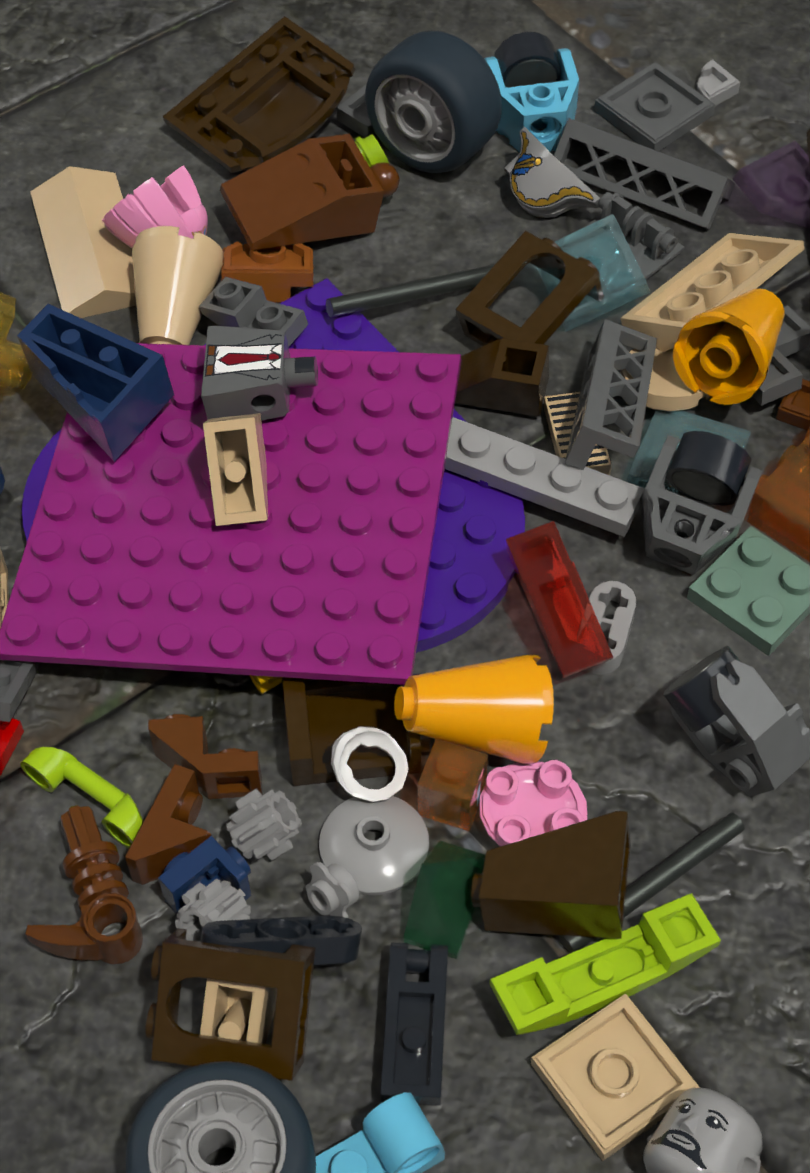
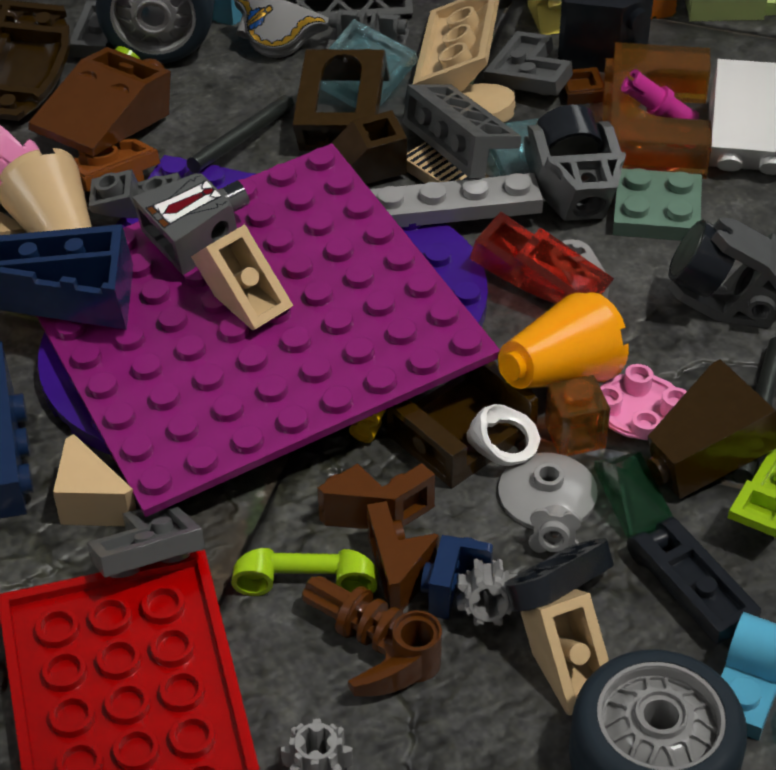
camera: 35 degrees left, 10 degrees down
(187, 959) = (511, 614): dark brown panel -> none
(264, 824) = (466, 512): light grey gear -> none
(732, 349) = (521, 60): light orange cone -> none

